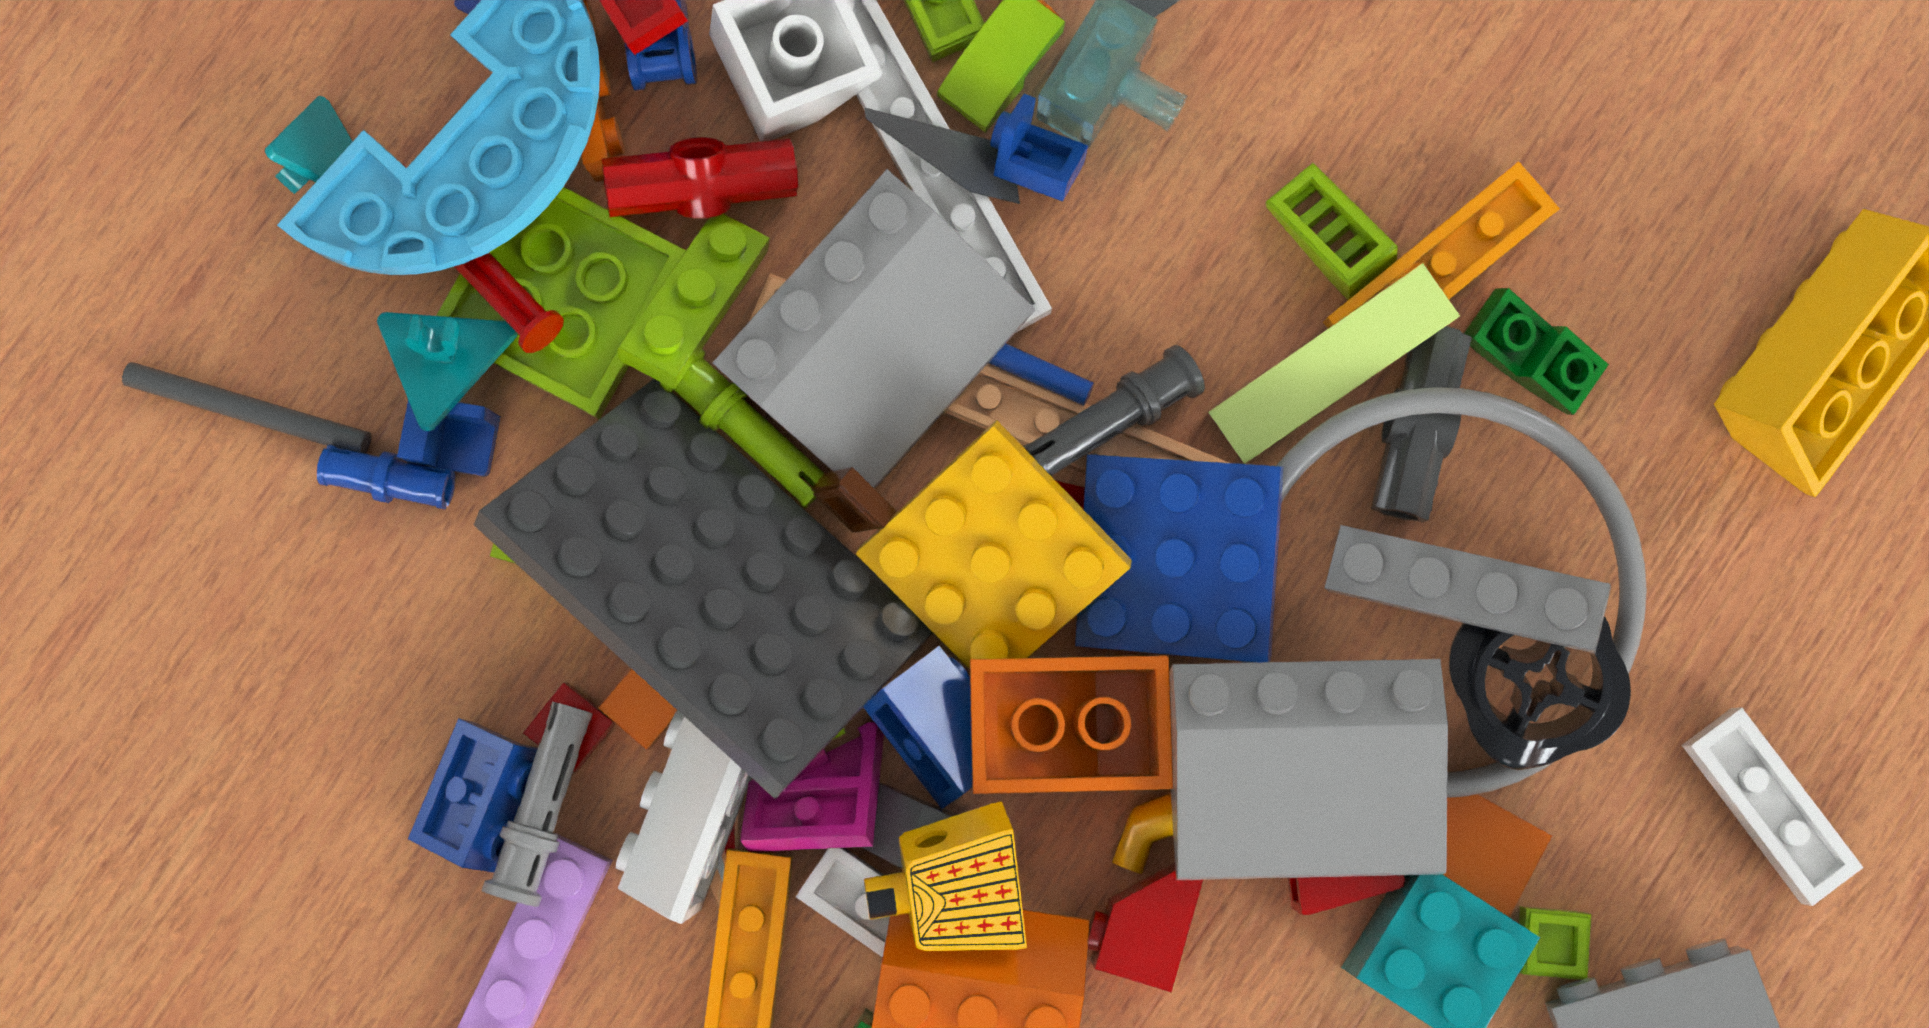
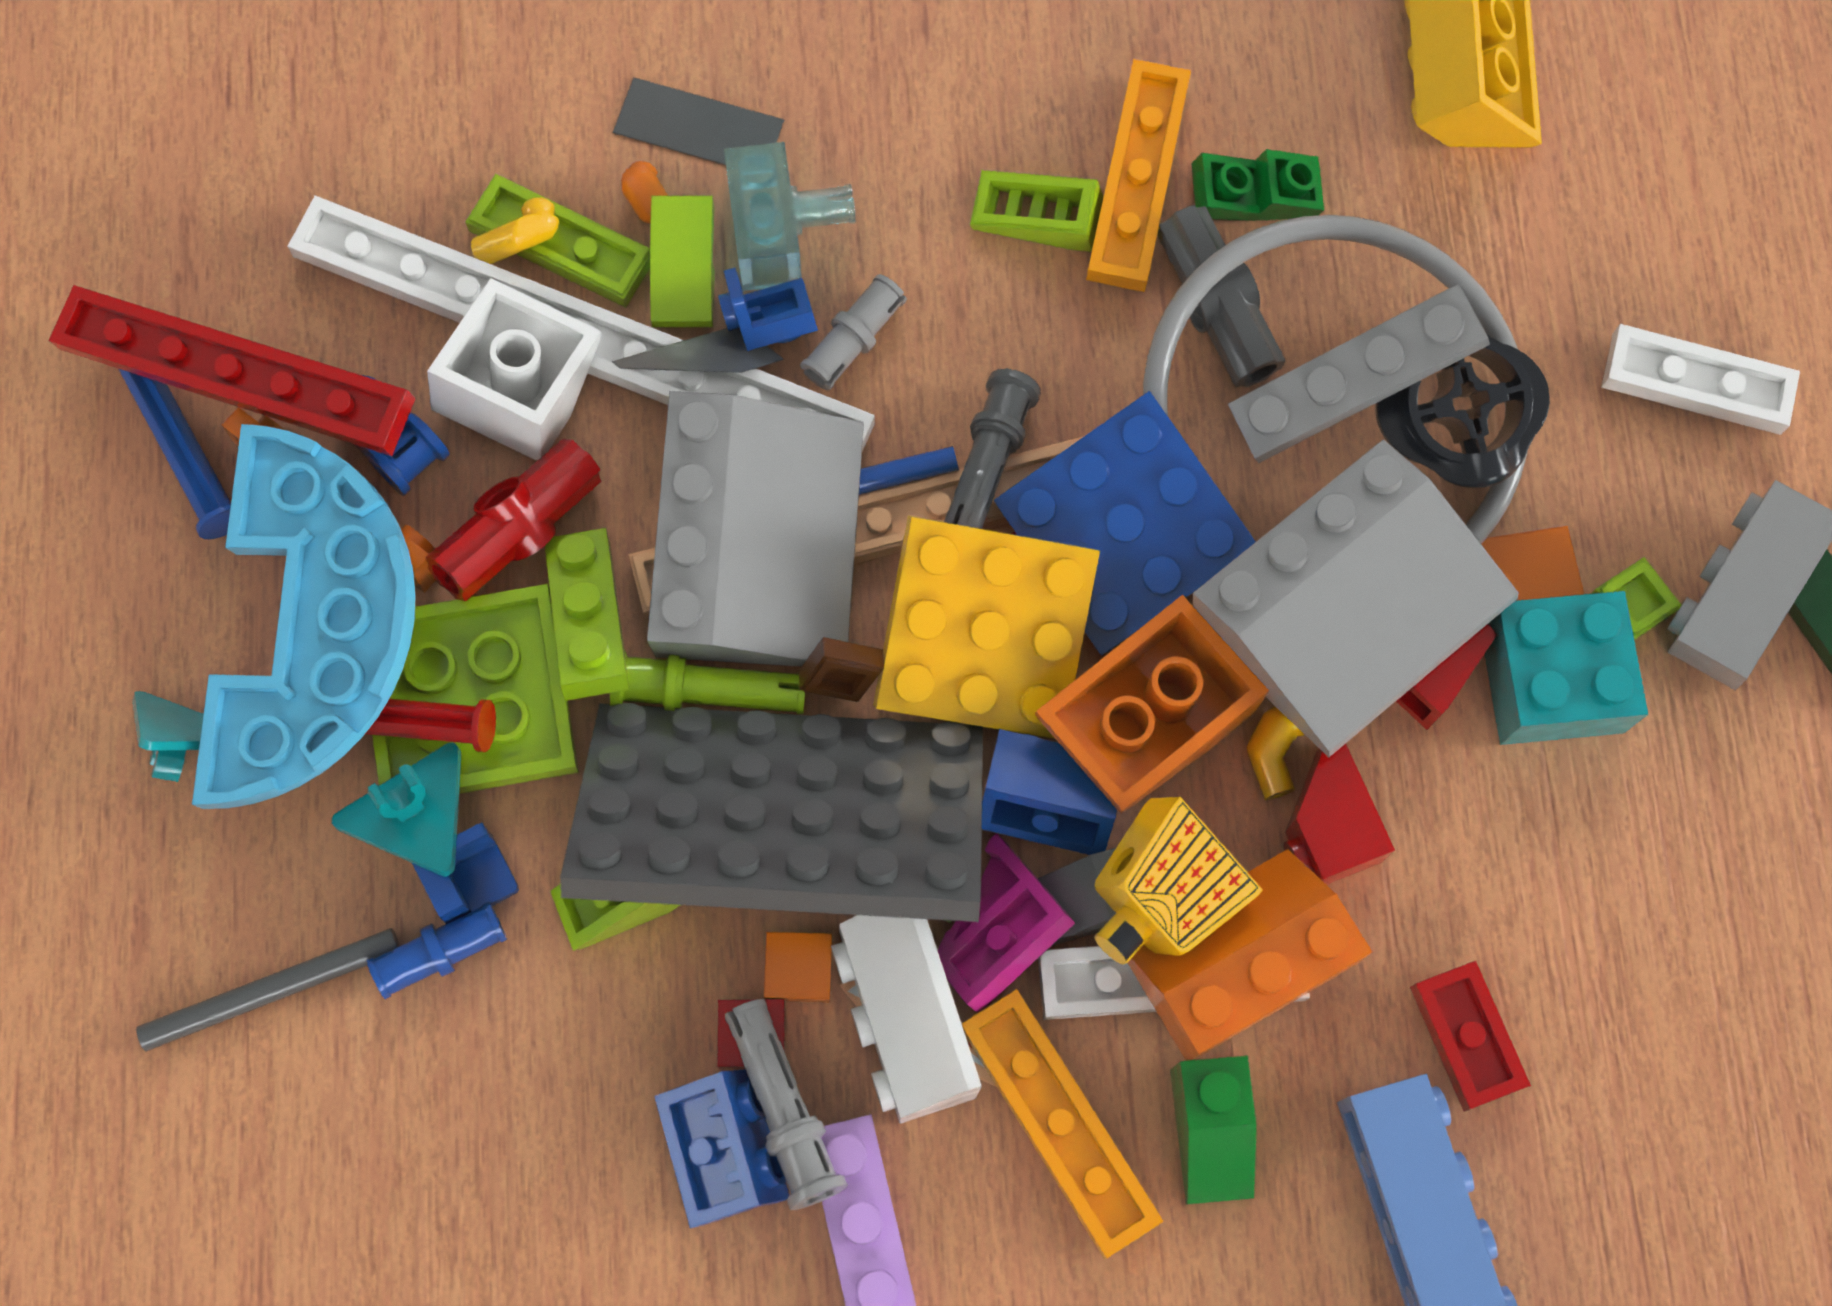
camera: 45 degrees left, 10 degrees down
(1093, 223) = (853, 332): none -> light grey pin
(1334, 363) = (1121, 298): yellowish green tile -> none

